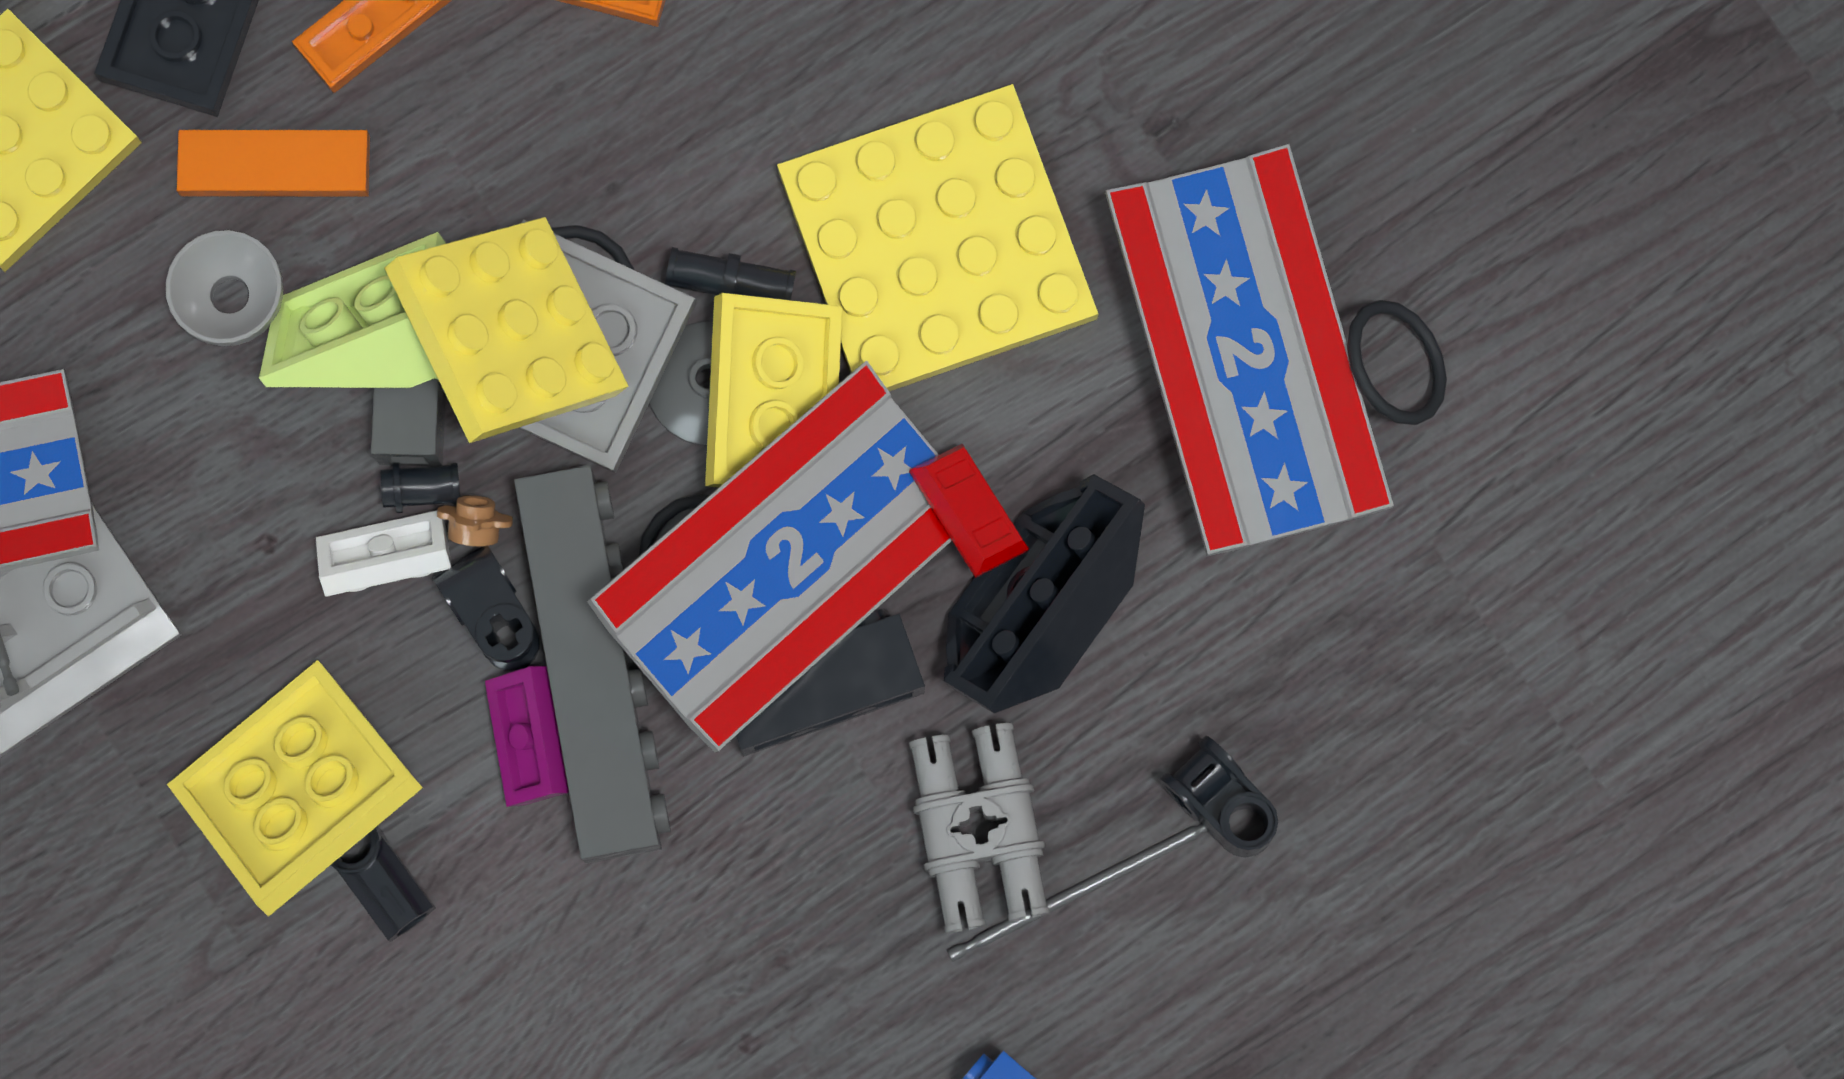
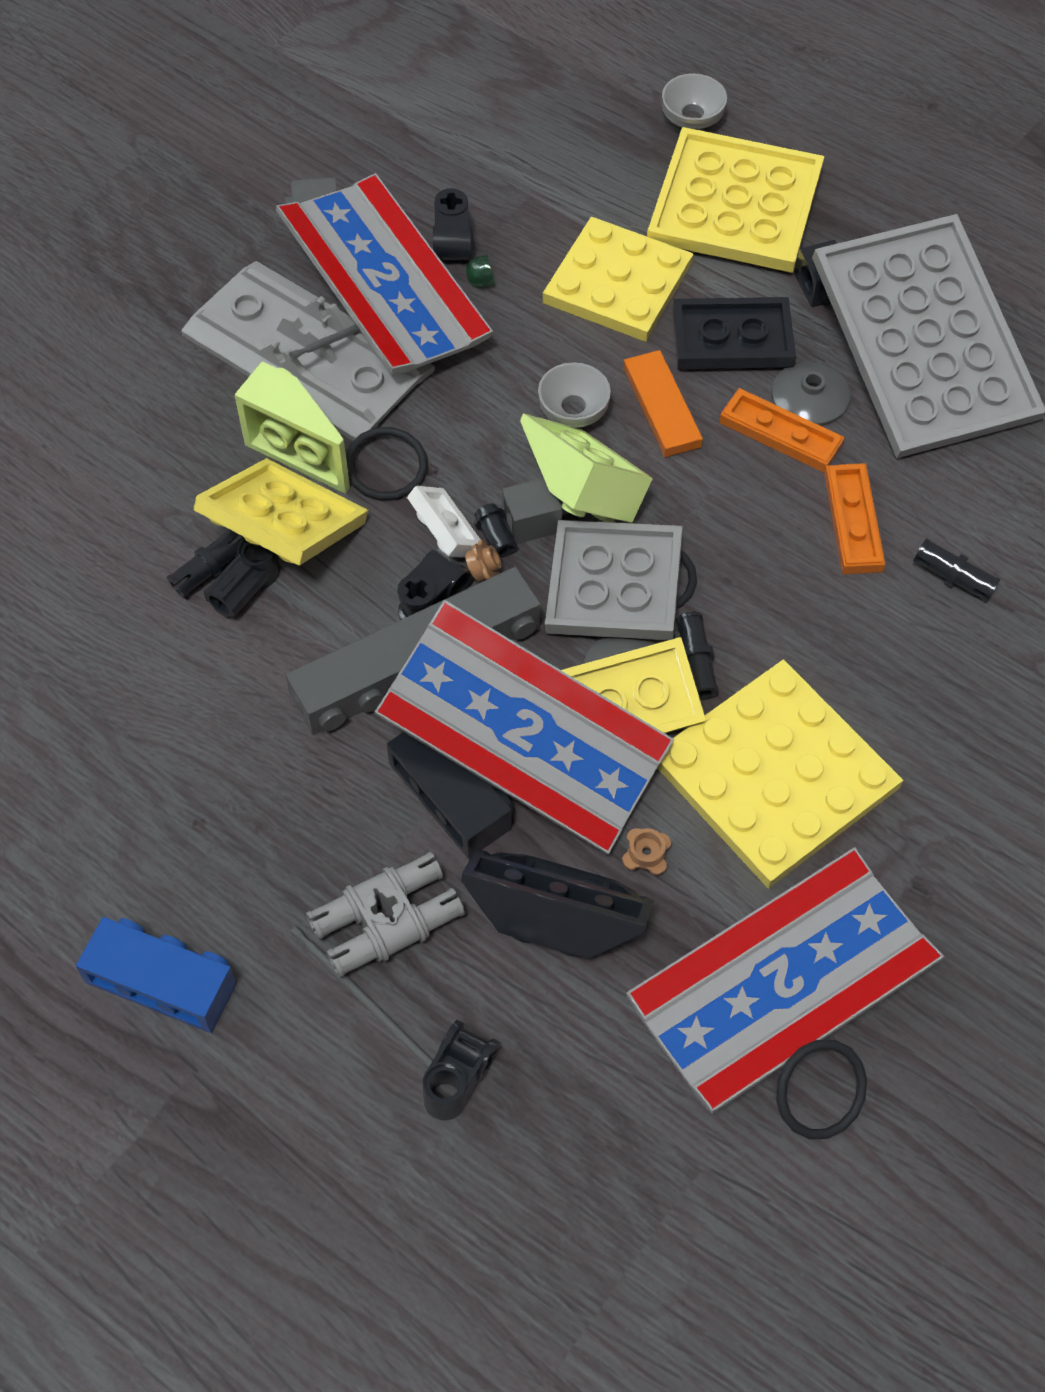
camera: 75 degrees right, 20 degrees down
(132, 733) = (290, 427): none -> yellowish green slope
(241, 665) = (389, 495): none -> black piece
(330, 931) = (205, 563): none -> black pin
(506, 328) = (604, 519): light yellow plate -> none
(526, 736) = (355, 628): magenta plate -> none
(968, 510) = (599, 838): red tile -> none
(1016, 450) = (651, 839): none -> medium nougat plate

